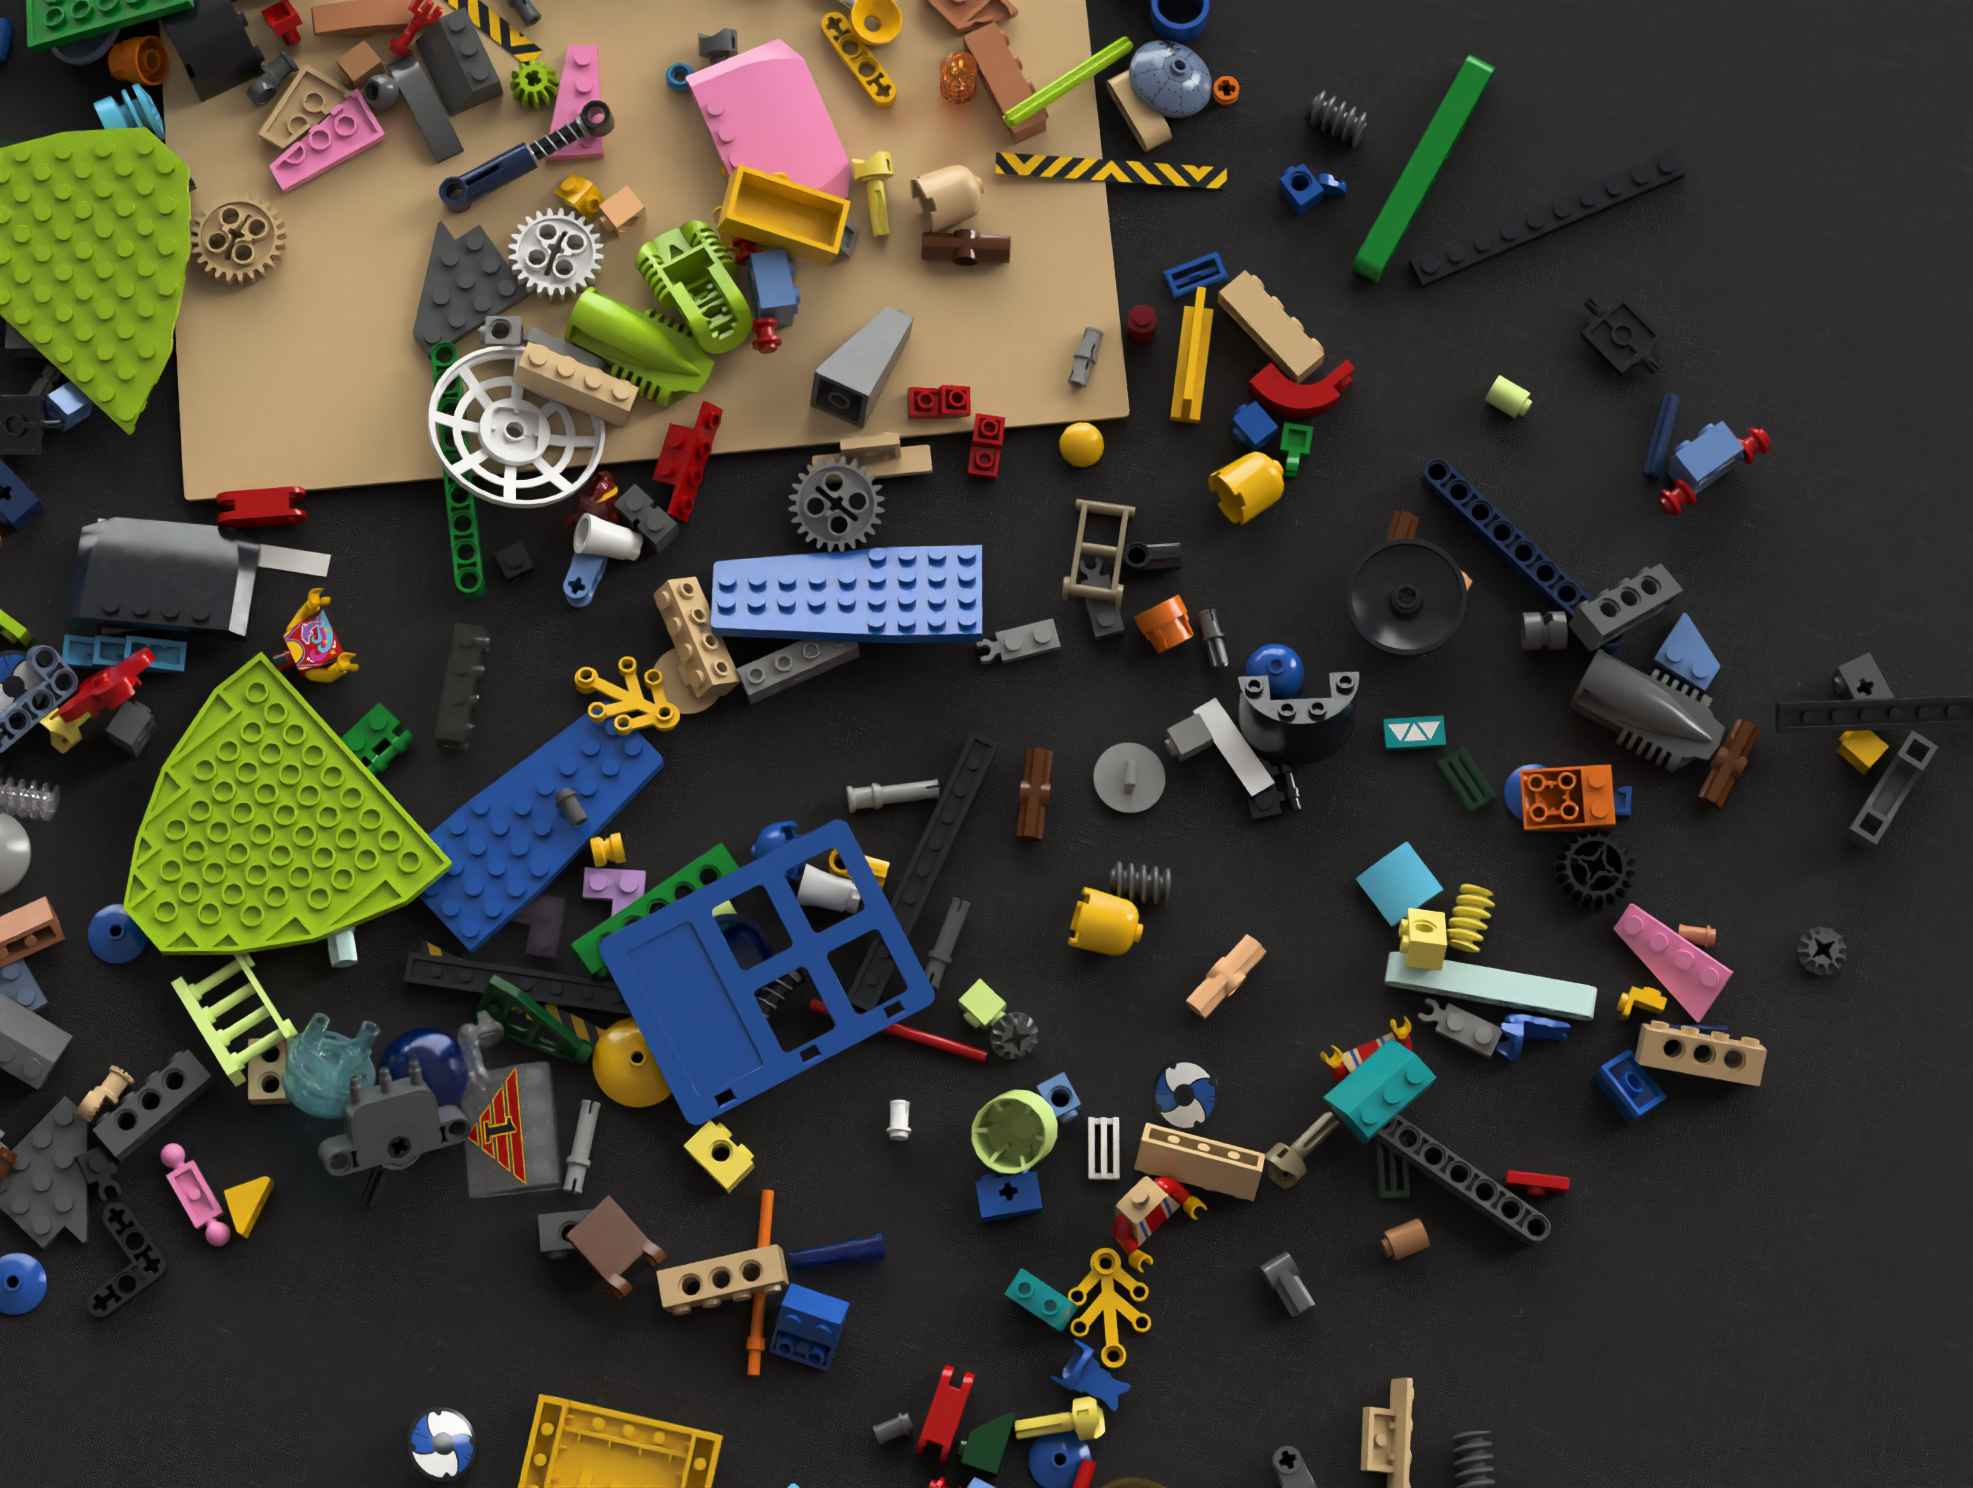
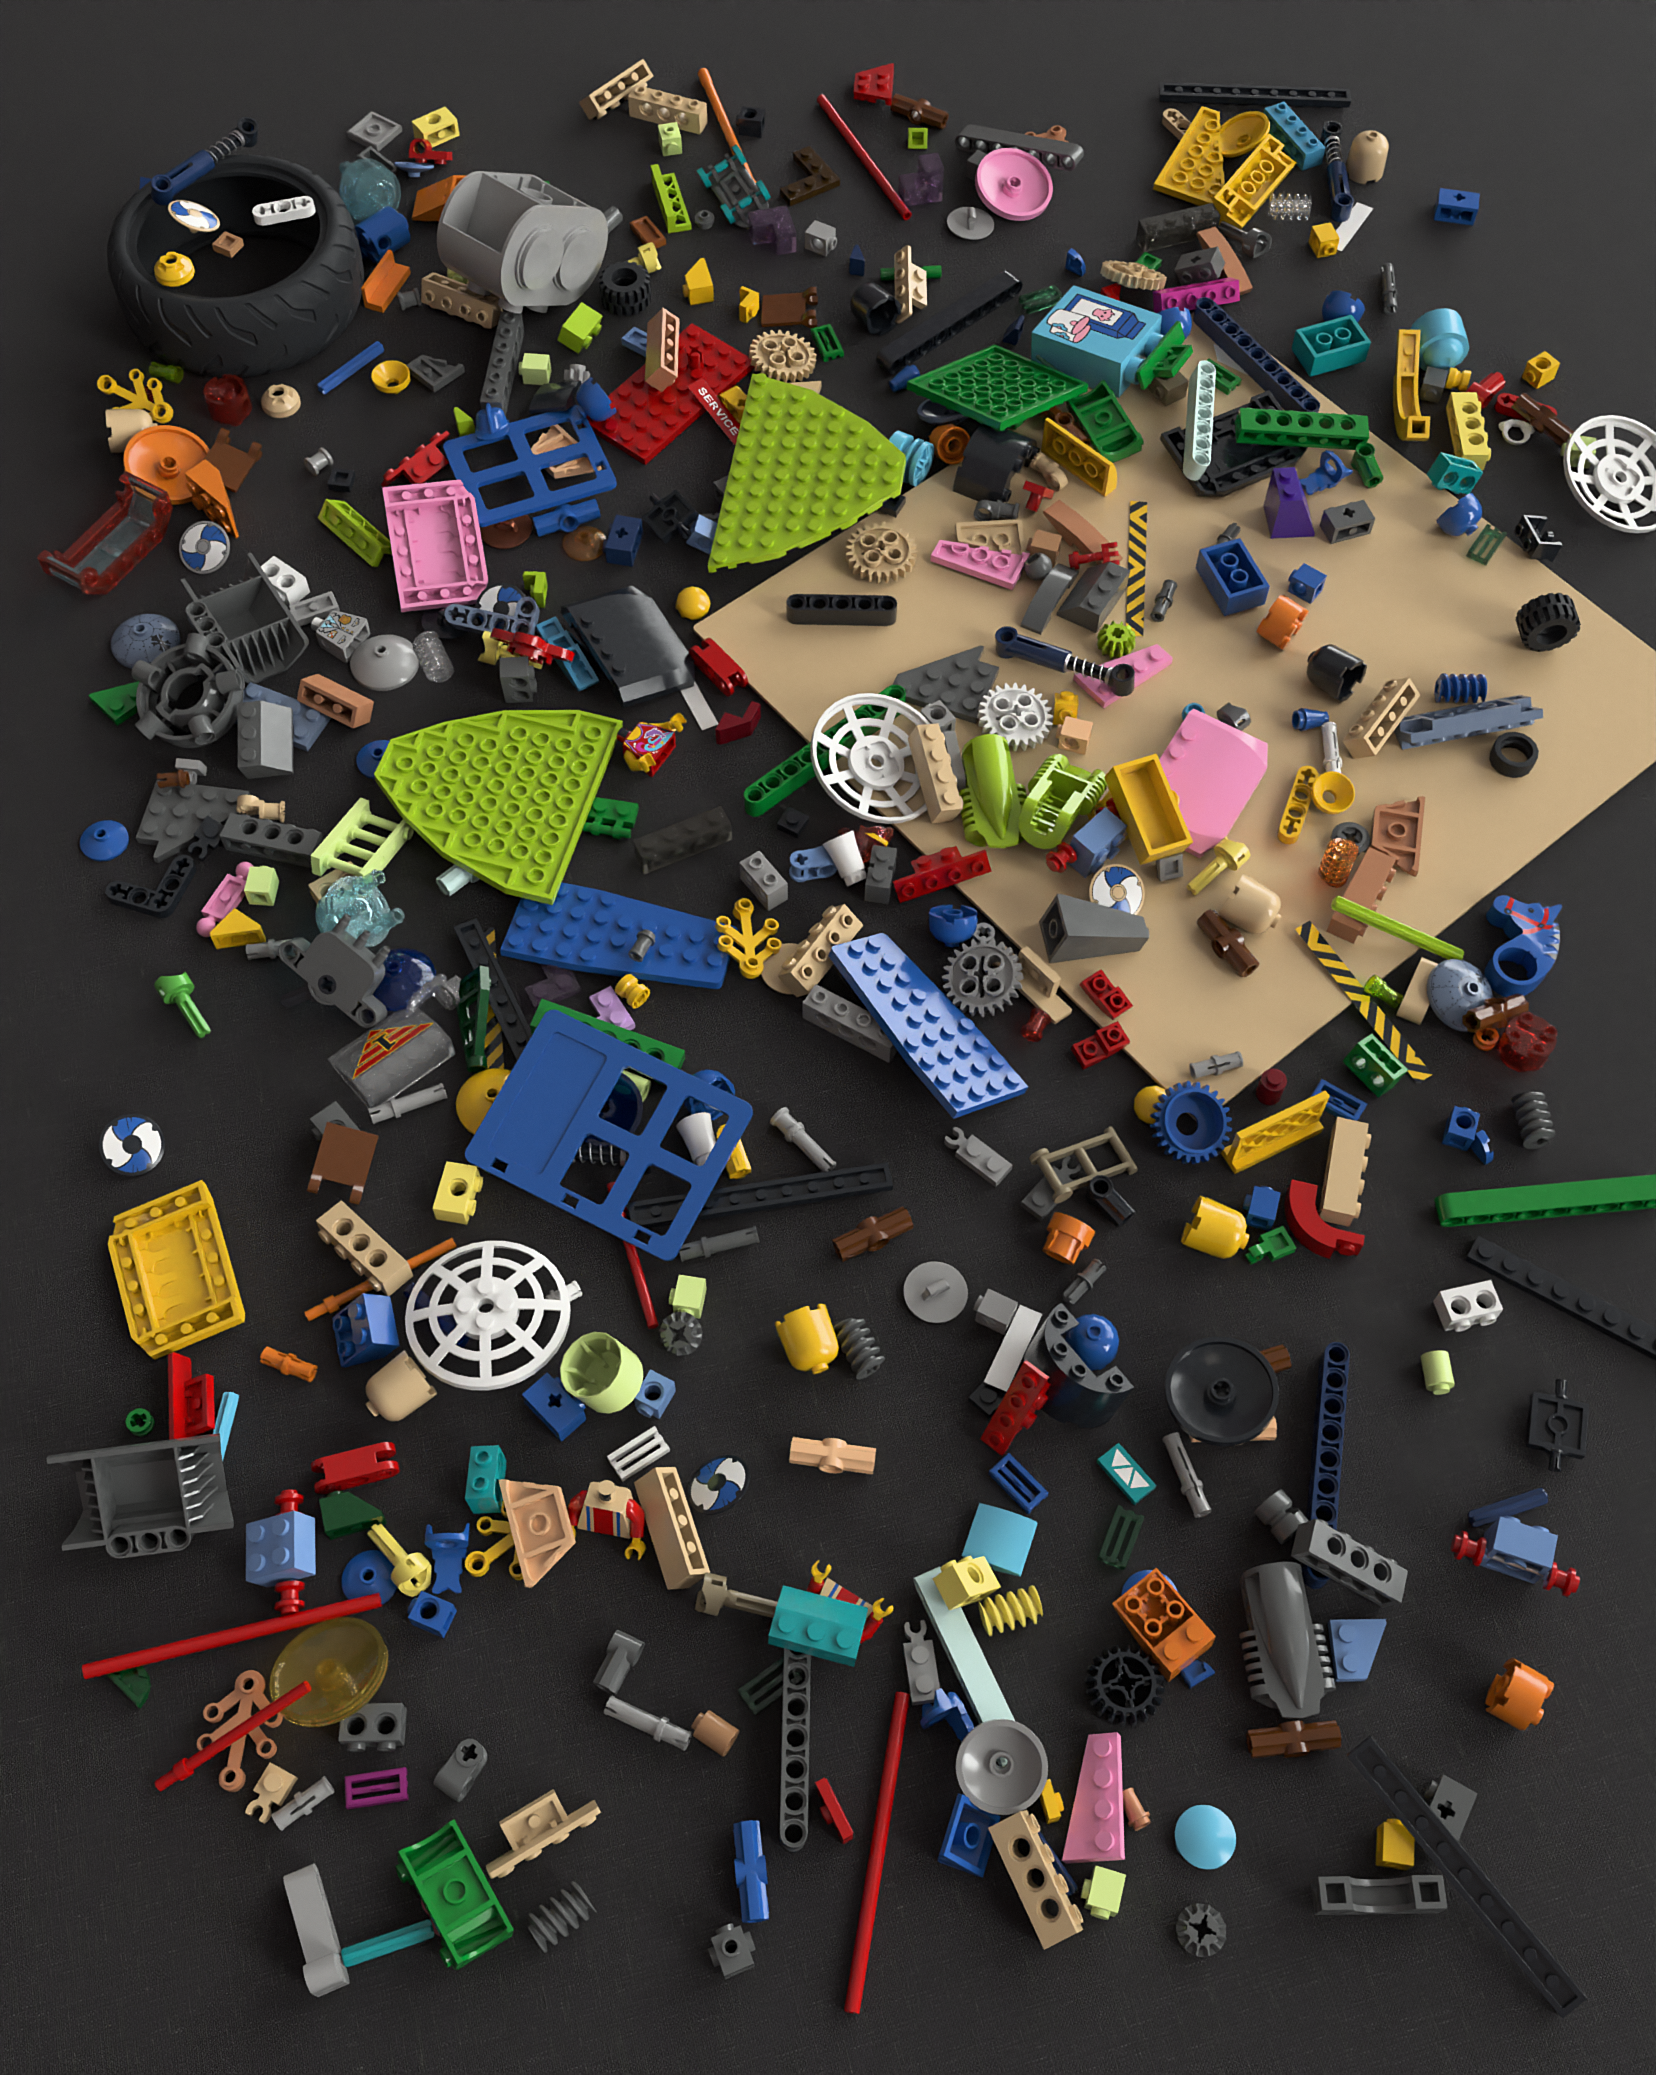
camera: 55 degrees right, 15 degrees down
(151, 478) = (693, 603): none -> yellow hair
(209, 1147) = (261, 885): none -> yellowish green brick
(282, 1304) = (177, 990): none -> bright green piece
(285, 345) = (841, 609): none -> black beam
(293, 1180) = (265, 949): none -> light grey pin
(354, 542) = (734, 727): none -> dark red slope
(570, 638) = (763, 880): none -> light grey brick
(756, 489) = (951, 924): none -> blue cylinder
(777, 462) = (983, 928): none -> light grey bush
(792, 1418) = (288, 1364): none -> orange pin
(837, 308) = (1117, 888): none -> shield
(887, 1216) = (491, 1324): none -> white dish
(894, 1428) = (327, 1442): dark grey pin -> none
(897, 1330) = (398, 1389): none -> tan cylinder
(921, 490) = (1035, 1025): none -> clear red bush
(942, 32) = (1348, 830): none -> dark grey gear
(1112, 146) = (1378, 988): none -> clear neon green pin
(1118, 1278) = (537, 1525): none -> light nougat wing
(1140, 1410) = (440, 1622): none -> blue brick
(1144, 412) = (1209, 1117): none -> blue gear
(1188, 215) = (1375, 1065): none -> green brick
(1214, 64) = (1495, 1013): none -> reddish brown piece
(1260, 60) = (1527, 1042): none -> clear red brick
(1303, 787) = (1017, 1407): none -> red bracket
(1333, 836) = (1034, 1501): none -> blue tile
(1364, 1288) = (653, 1725): none -> light grey pin
(1451, 682) = (1190, 1484): none -> light grey pin
(1464, 321) = (1465, 1300): none -> white brick
(1540, 1283) = (751, 1871): none -> blue piece
(1589, 1167) = (876, 1854): none -> red piece
(1604, 1333) = (732, 1962): none -> dark grey brick
(1617, 1020) = (1004, 1788): none -> light grey dish
(1745, 1007) = (1103, 1892): none -> yellowish green brick
(1755, 894) = (1205, 1837): none -> medium azure dish
(1817, 556) = (1518, 1695): none -> orange brick

